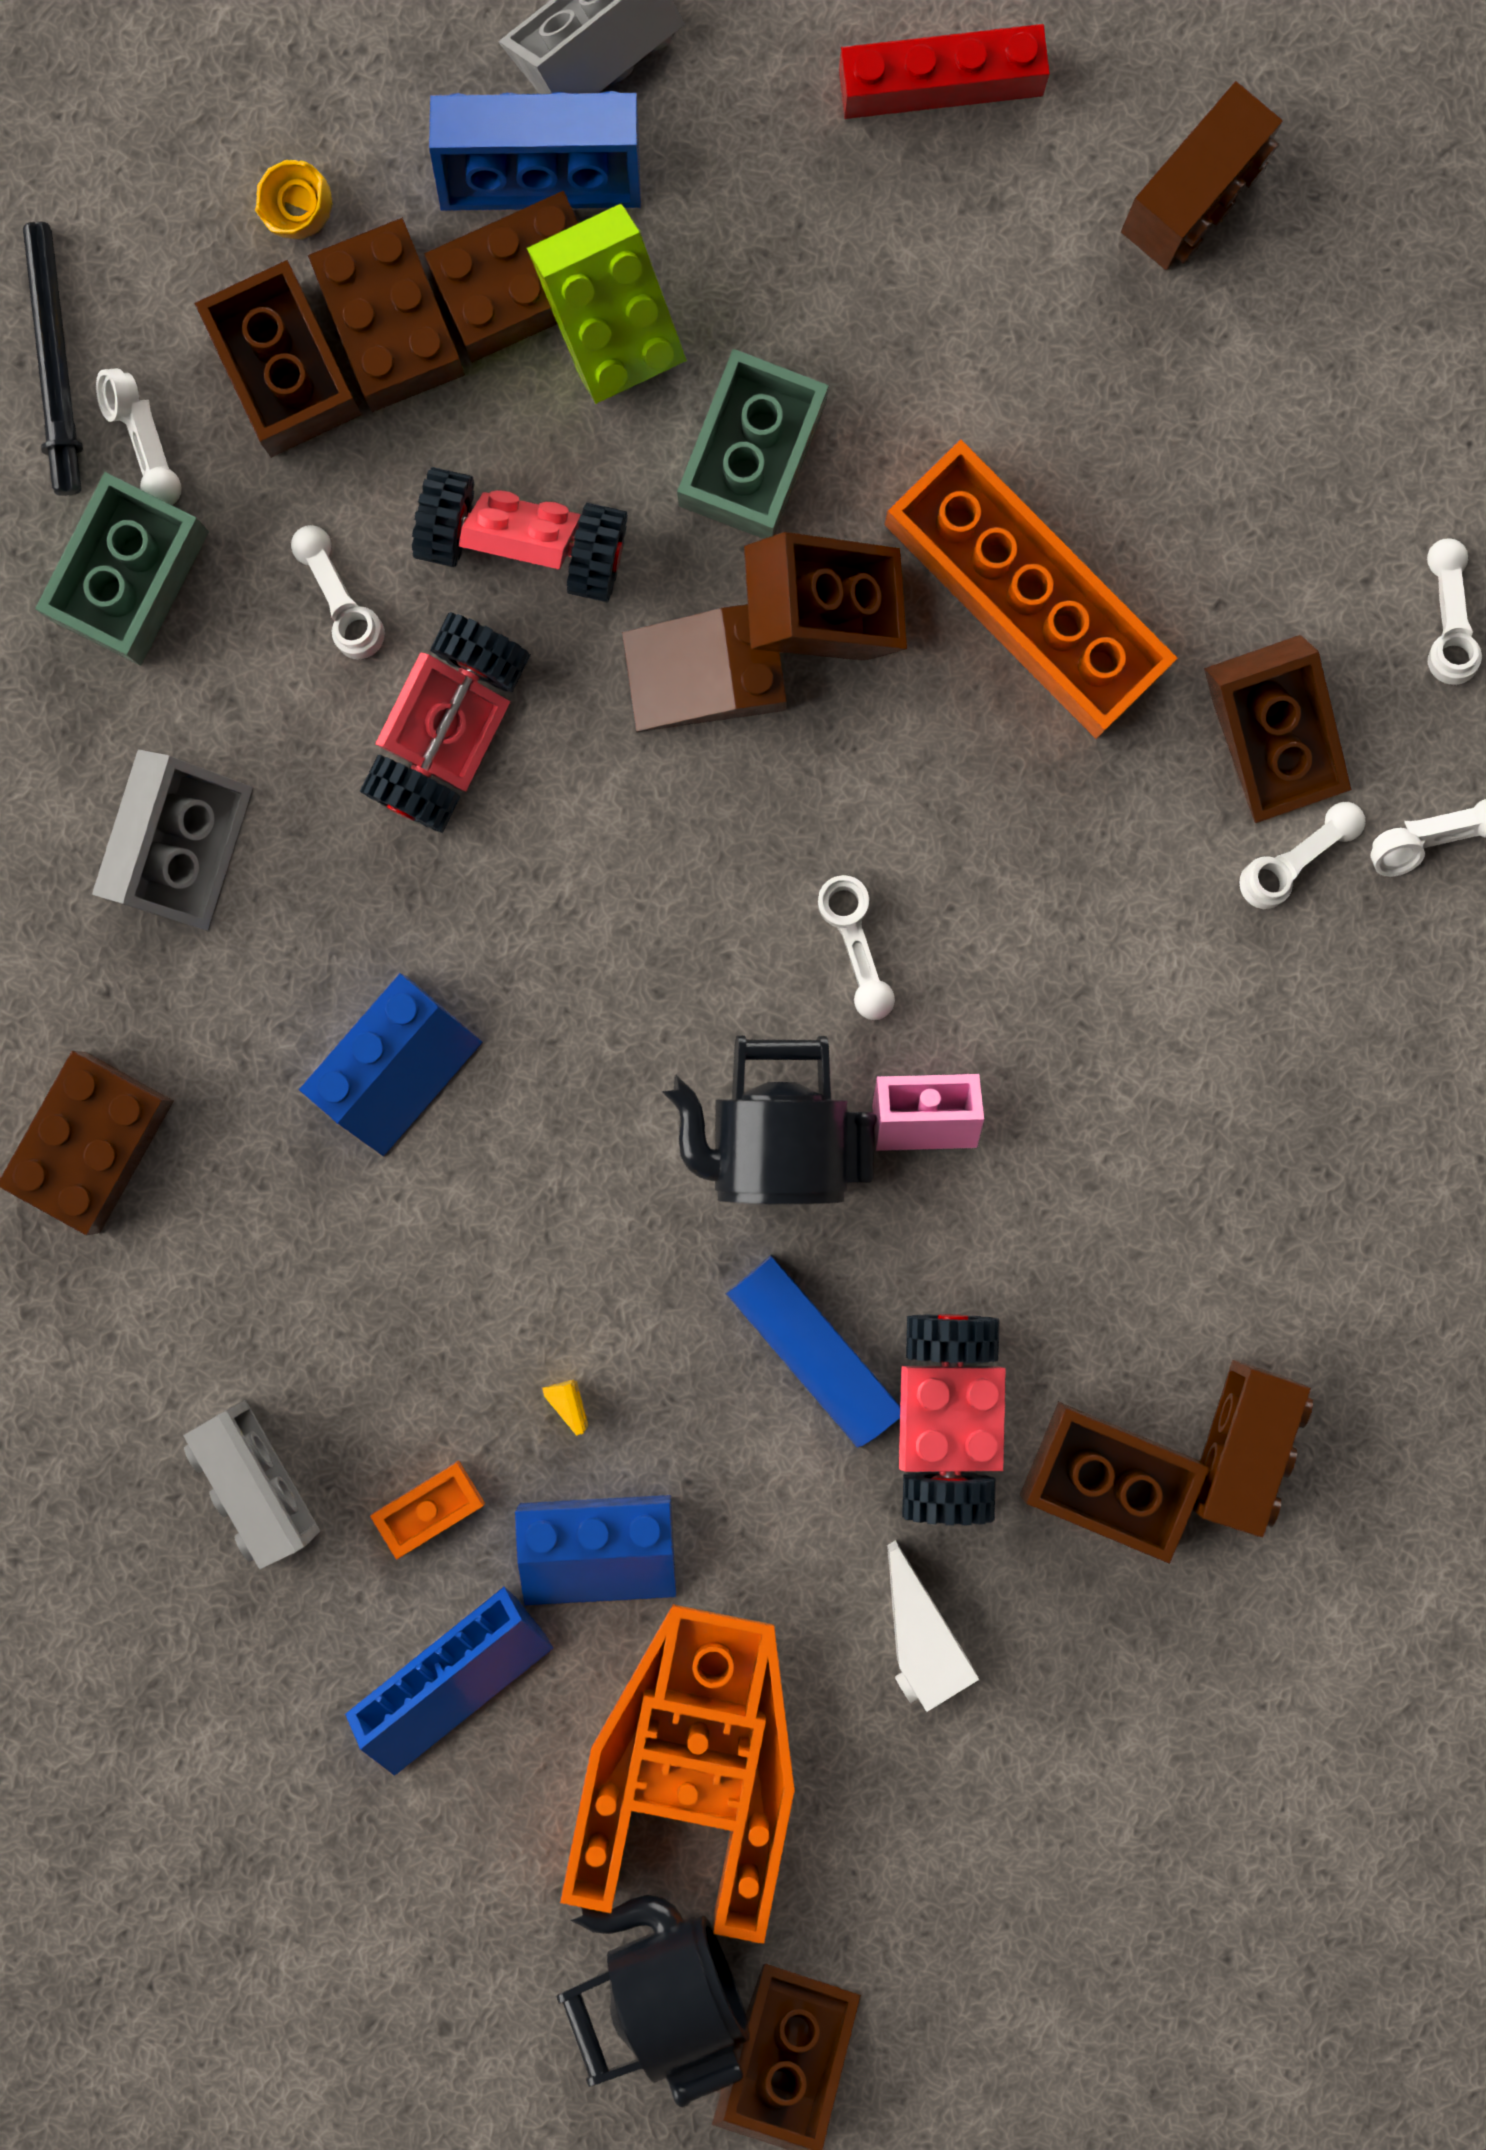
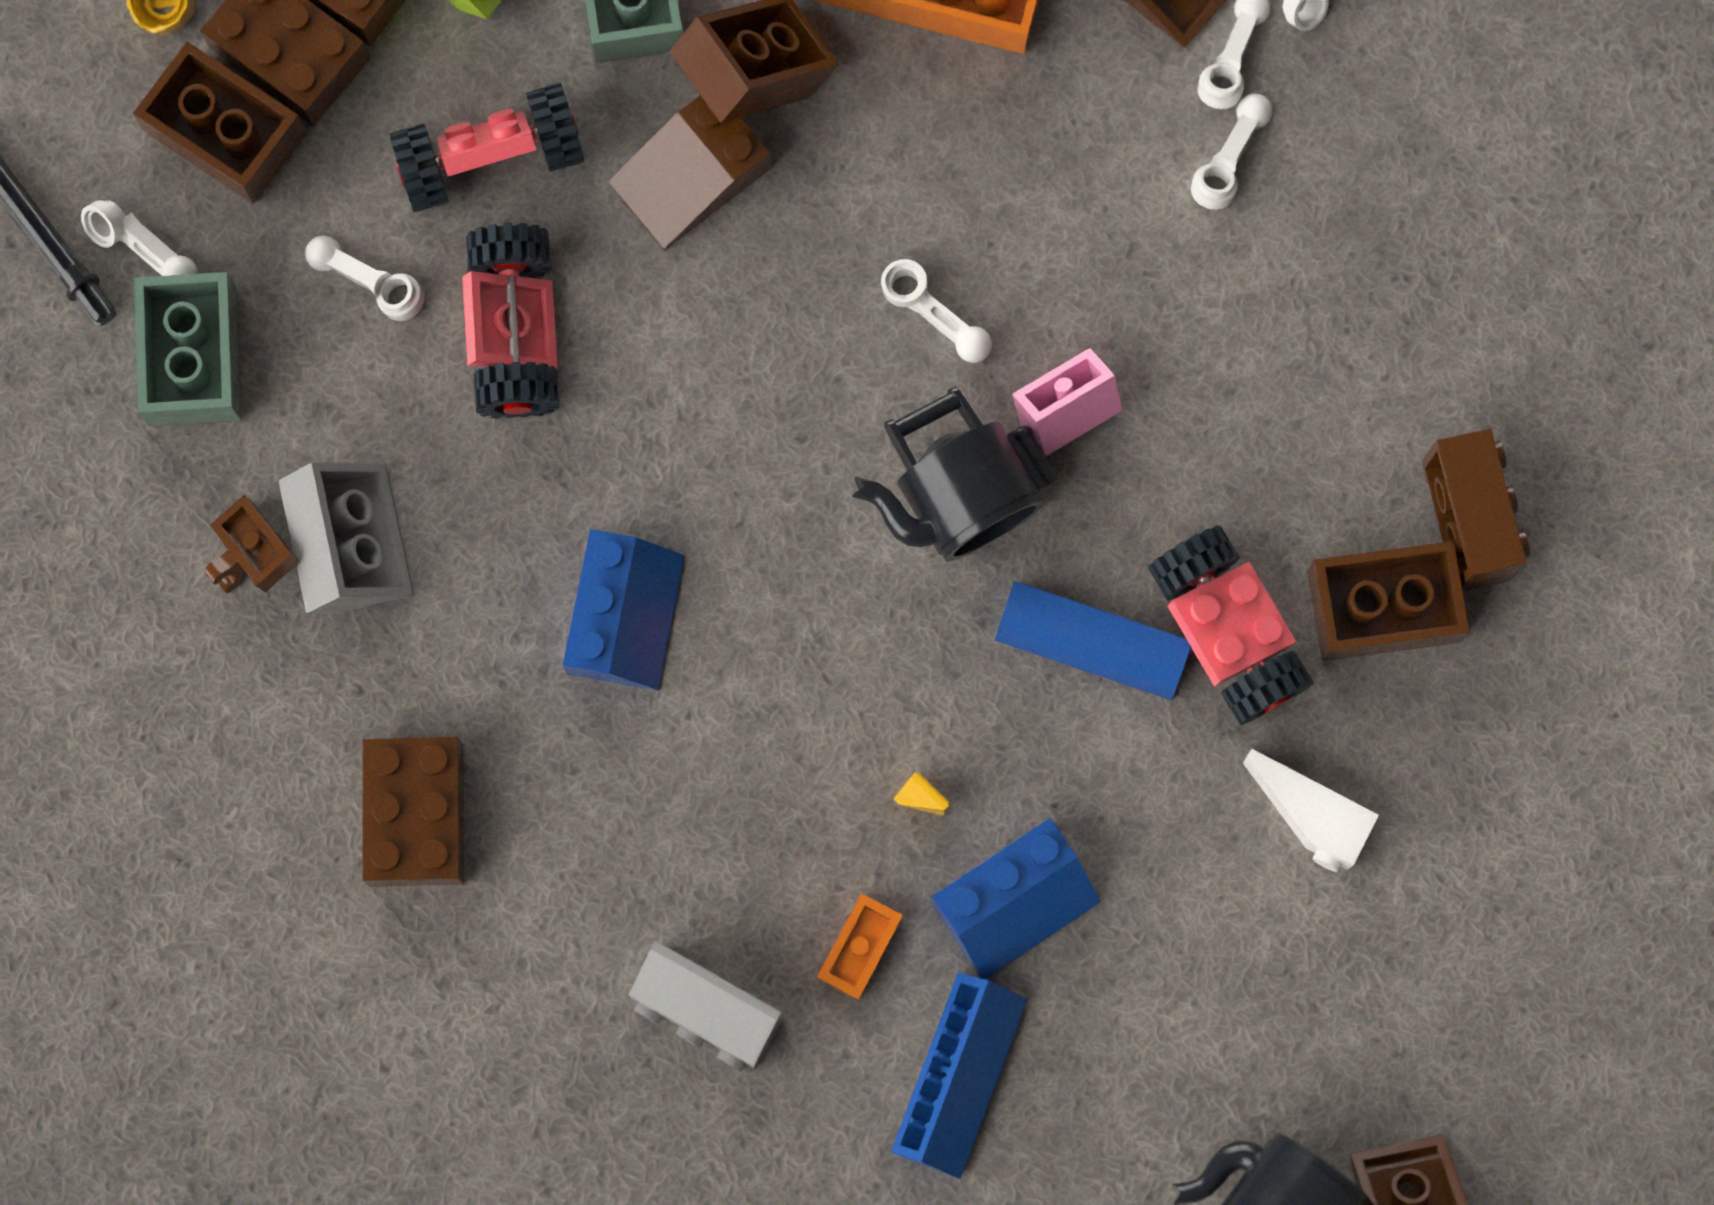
camera: 30 degrees left, 10 degrees down
(79, 799) = (251, 547): none -> reddish brown plate
(696, 1744) = (1187, 993): orange wedge -> none
(1281, 927) = (1253, 113): none -> white piece

